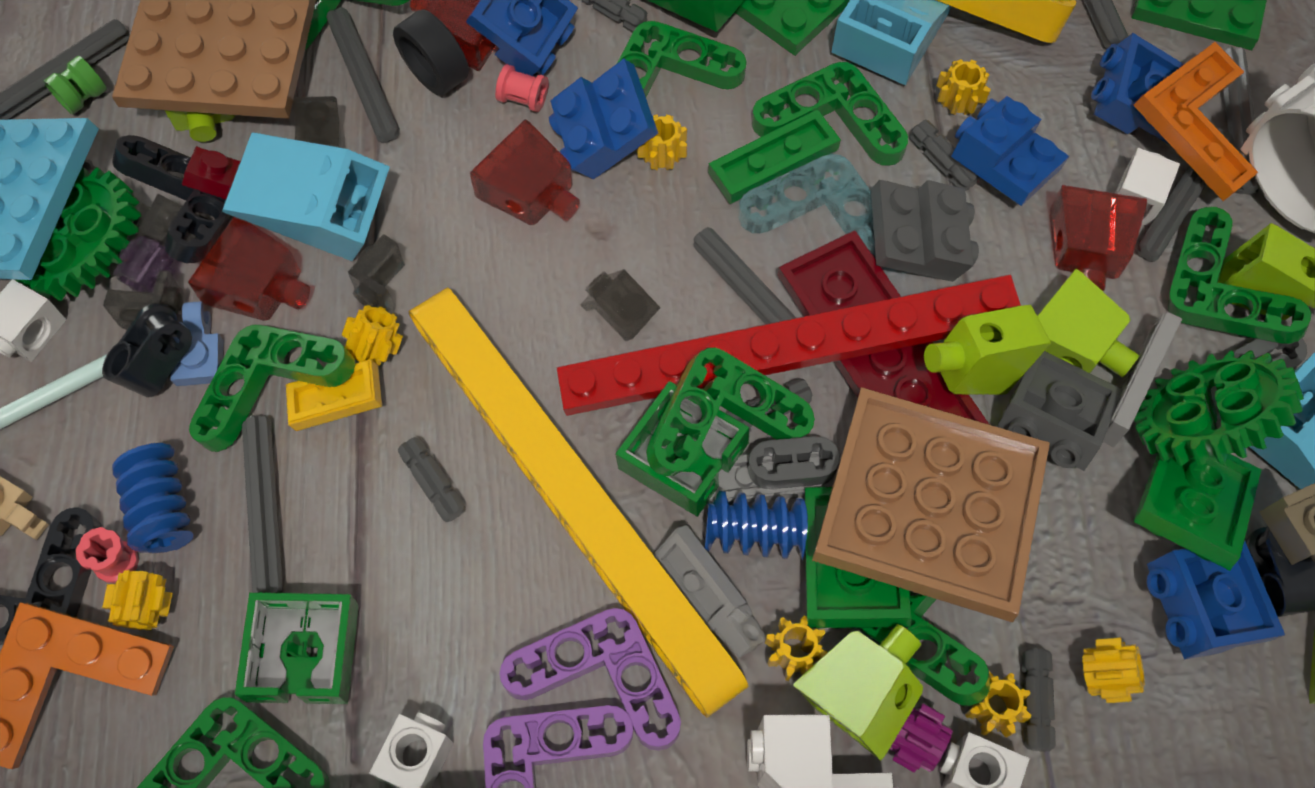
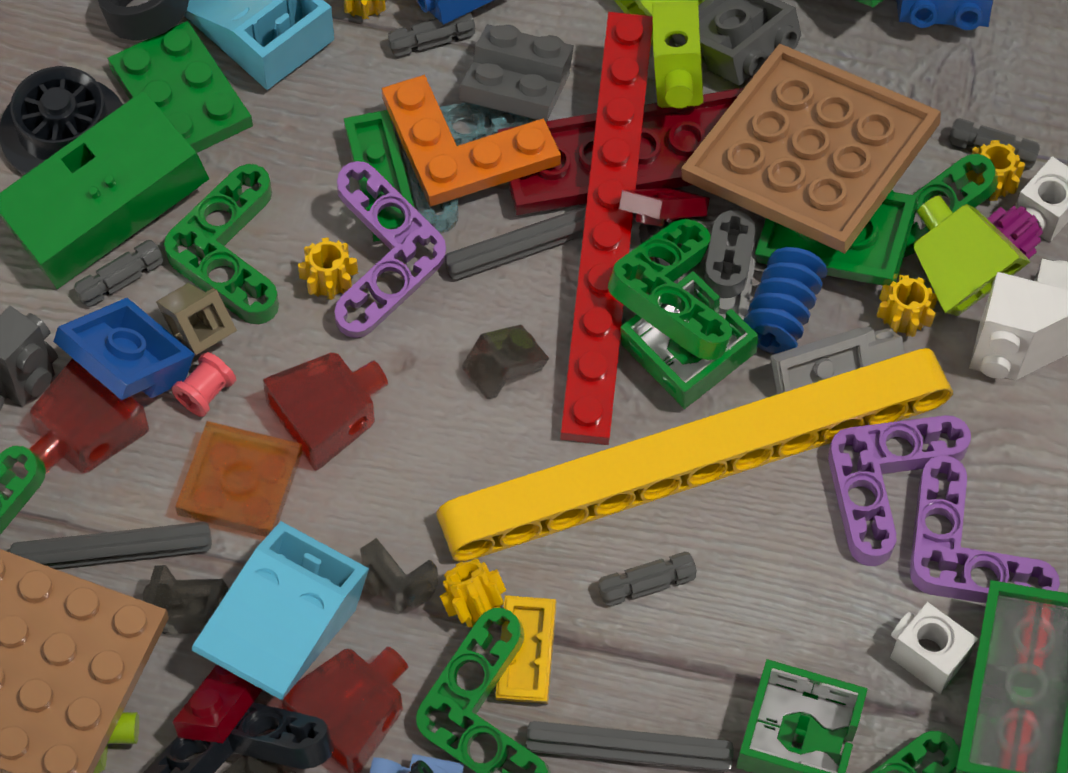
camera: 75 degrees left, 5 degrees down
(431, 52) = (132, 454): black tyre -> none
(440, 138) = (239, 479): none -> clear orange plate
(583, 57) = (196, 317): none -> dark tan brick
(602, 119) = (285, 309): blue plate -> none
(702, 184) = (399, 241): none -> medium lavender beam
(794, 204) = (460, 170): none -> orange plate
(819, 385) = (663, 204): none -> dark red plate
(834, 98) = (325, 106): green beam -> none
(1113, 670) = (987, 76): yellow gear -> none

